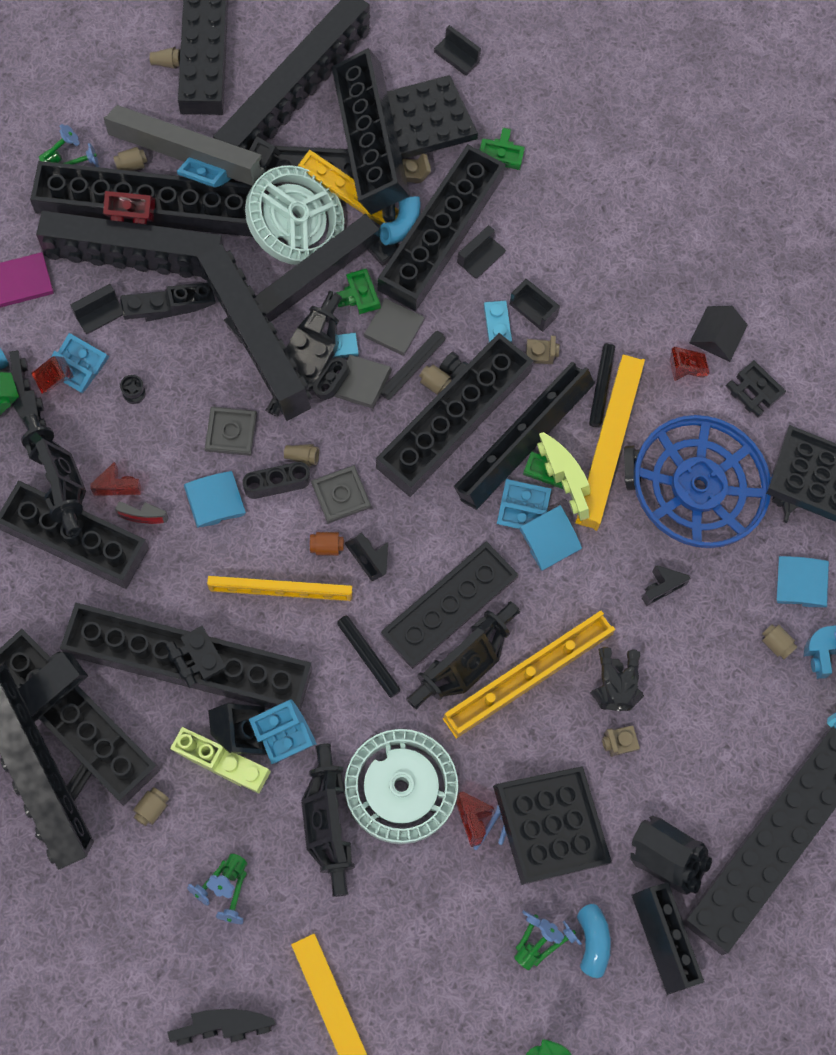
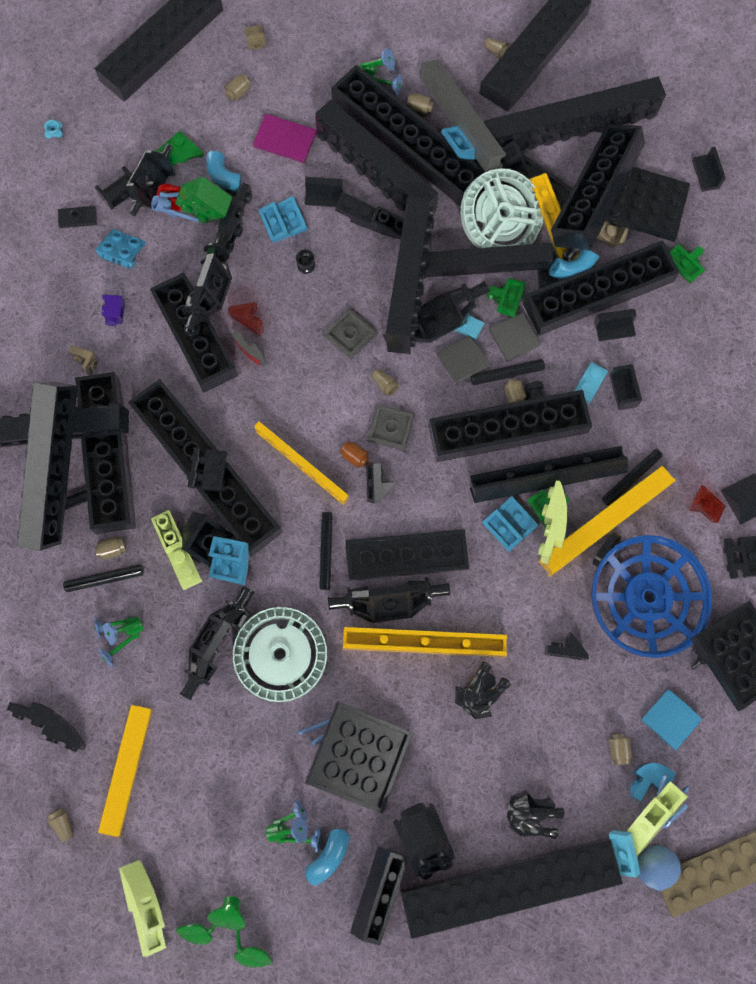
camera: 40 degrees right, 5 degrees up
(52, 373) = (262, 215): clear red slope -> none
(129, 206) = (388, 131): dark red brick -> none
(165, 843) = (103, 578): none -> black axle
(214, 499) = (304, 372): dark azure slope -> none
(285, 472) = (347, 381): black beam -> none
(331, 379) = (442, 343): black plate -> none
(471, 811) = (313, 706): clear red slope -> none
(542, 350) = (606, 423): dark tan bracket -> none
(550, 537) = (512, 559): dark azure slope -> none
(620, 741) = (453, 735): dark tan bracket -> none
(742, 761) = (527, 813): none -> black piece

